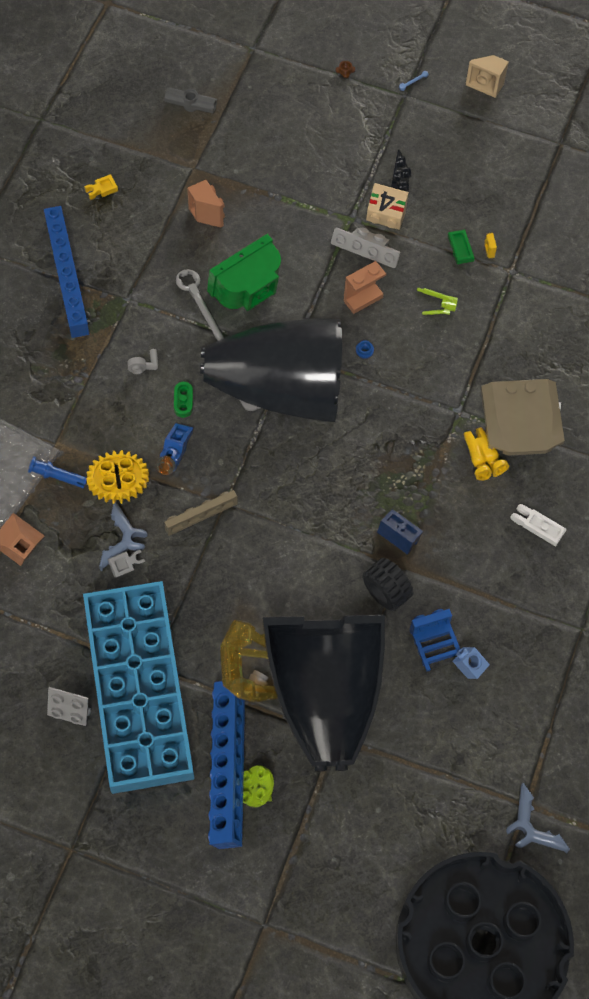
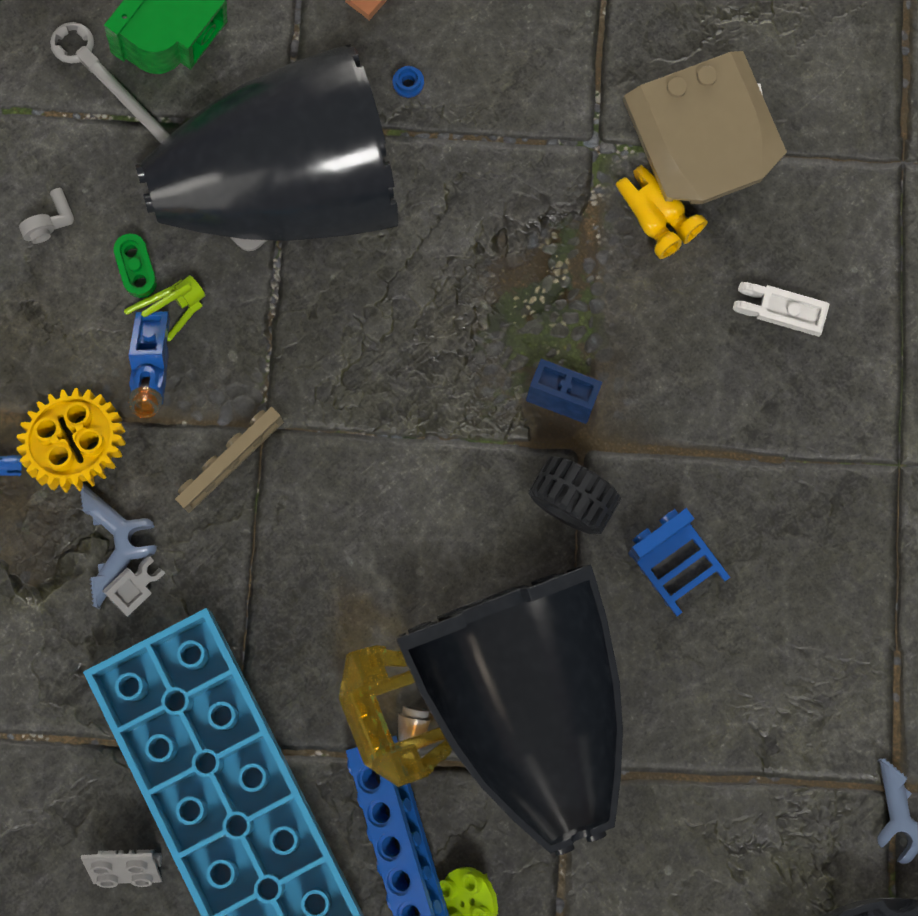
camera: 15 degrees left, 15 degrees up
(205, 421) = (184, 292): none -> lime plant
(477, 666) = (755, 586): medium blue brick -> none

